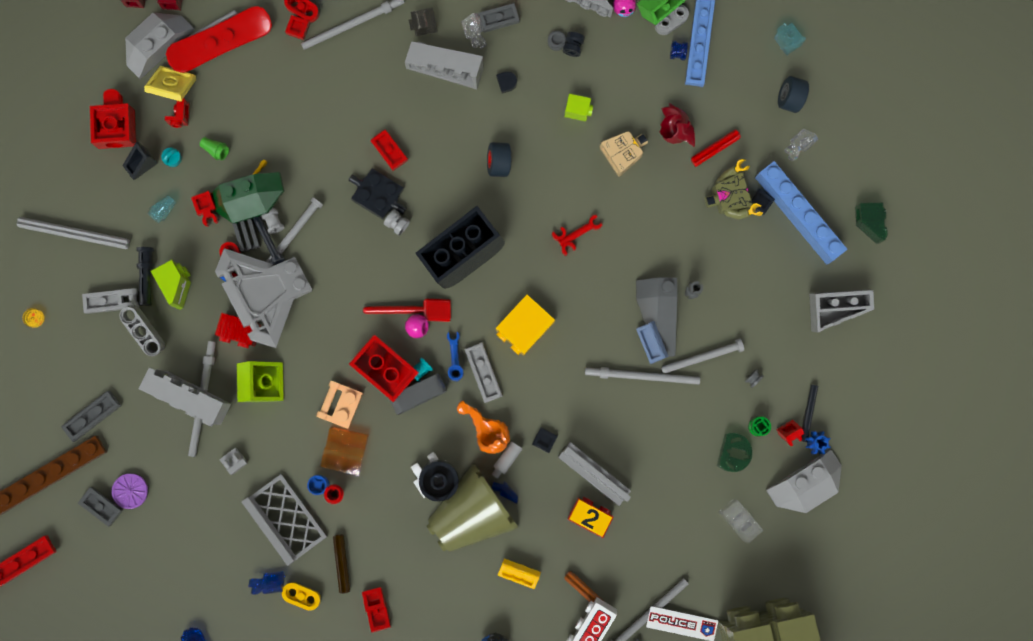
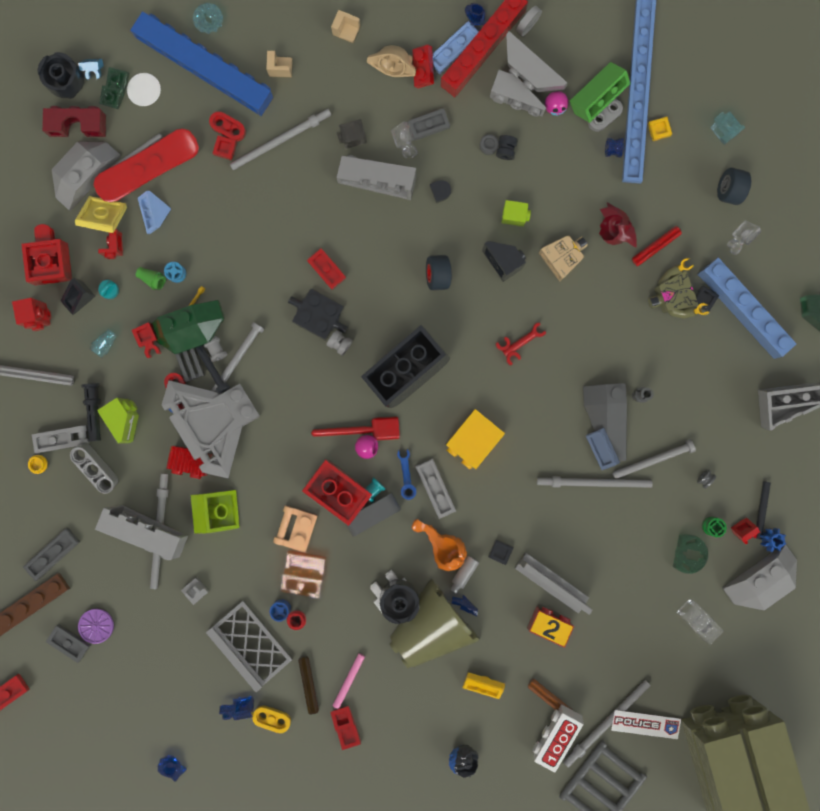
camera: 10 degrees right, 5 degrees up
(85, 324) = (37, 464): none -> yellow plate
(93, 175) = (31, 314): none -> red brick
(221, 83) = (153, 211): none -> light blue slope
(237, 140) = (171, 270): none -> dark azure wheel
(382, 562) = (348, 681): none -> bright pink bar
(564, 149) = (504, 258): none -> black slope
(724, 36) = (659, 128): none -> yellow tile

